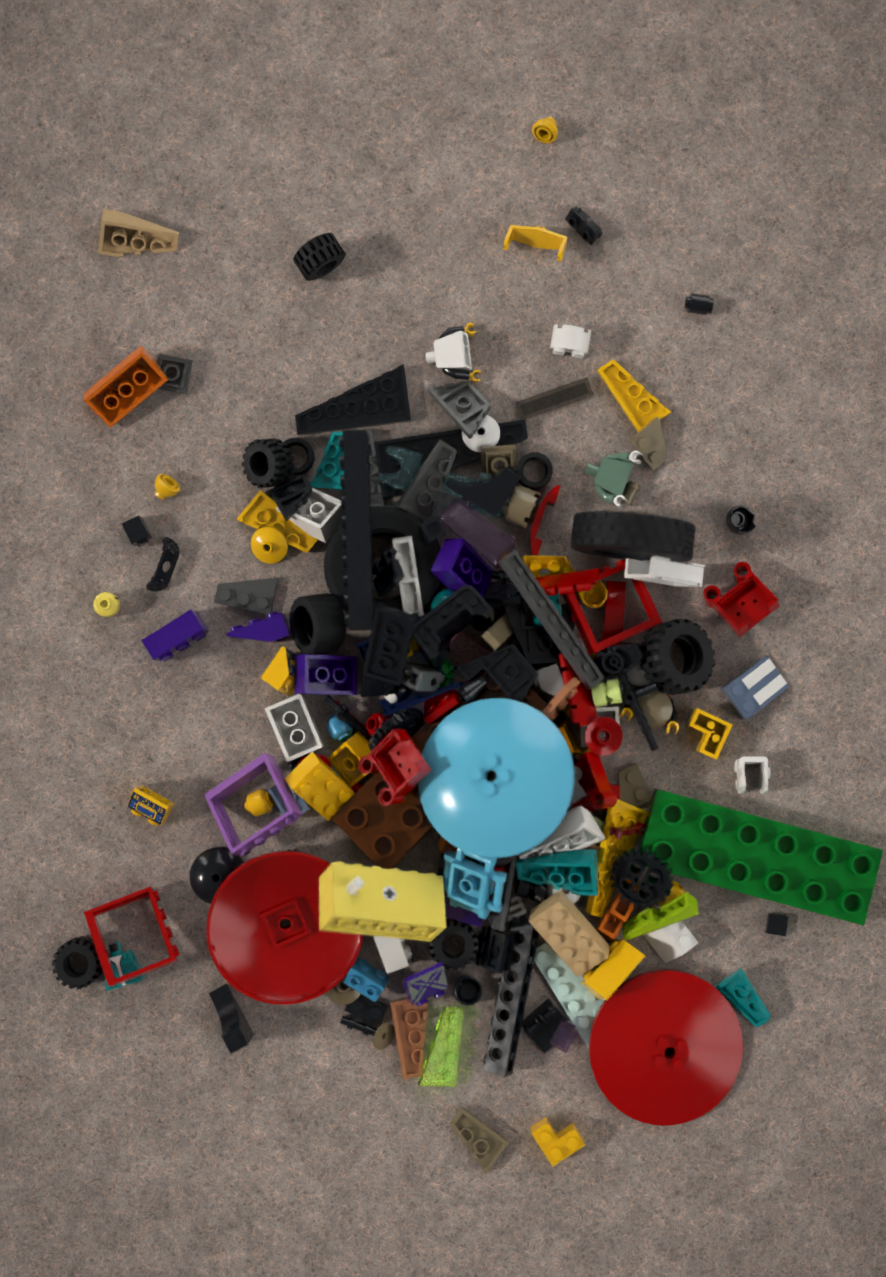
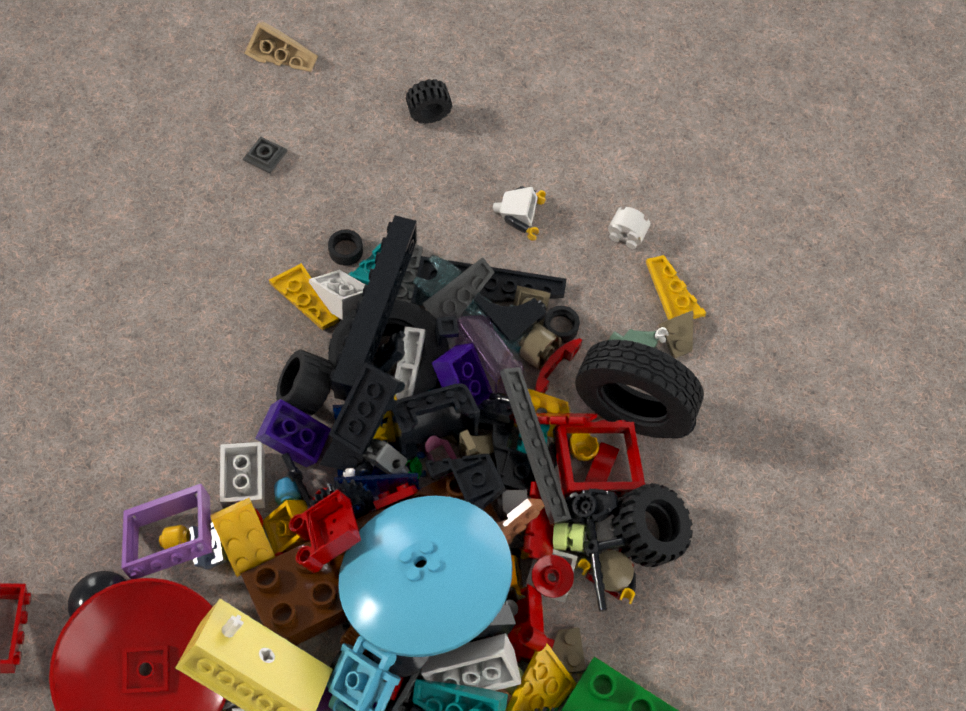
camera: 10 degrees right, 25 degrees down
(107, 604) = (116, 313): light yellow head -> none
(125, 386) = (218, 147): orange slope -> none
(137, 531) = (174, 262): black brick -> none
(150, 804) = (65, 504): slope -> none
(161, 579) = (176, 308): black piece -> none
(165, 486) = (217, 236): yellow brick -> none
(175, 636) = (165, 356): dark purple brick -> none
(248, 595) = (251, 348): dark grey wing -> none
(256, 462) = (317, 239): black tyre -> none
(272, 629) = (248, 376): dark purple slope -> none
(273, 538) = (296, 314): yellow dish -> none
(281, 671) = (250, 416): yellow slope -> none
(291, 495) = (327, 271): black wing -> none
(366, 405) = (435, 226): black wing -> none
(462, 404) = (513, 249): dark grey wing -> none
(471, 689) = (431, 485): black cone -> none
(488, 439) = (513, 278): white dish -> none
(537, 238) = (622, 145): yellow piece -> none
(545, 130) = (654, 74): yellow brick -> none
(554, 399) = (600, 273): clear smoke tile -> none
(577, 219) = (666, 149): black hinge -> none
(635, 829) = (557, 693): dark red piece -> none
(665, 572) = (663, 440): white piece -> none
(699, 304) = (755, 236): black brick -> none
(713, 729) = (670, 616): yellow brick -> none
(740, 520) = (749, 425): black hair -> none
(745, 603) = (733, 498): red piece -> none
(754, 688) = (724, 589): sand blue slope -> none
(764, 772) = (712, 665): white piece -> none

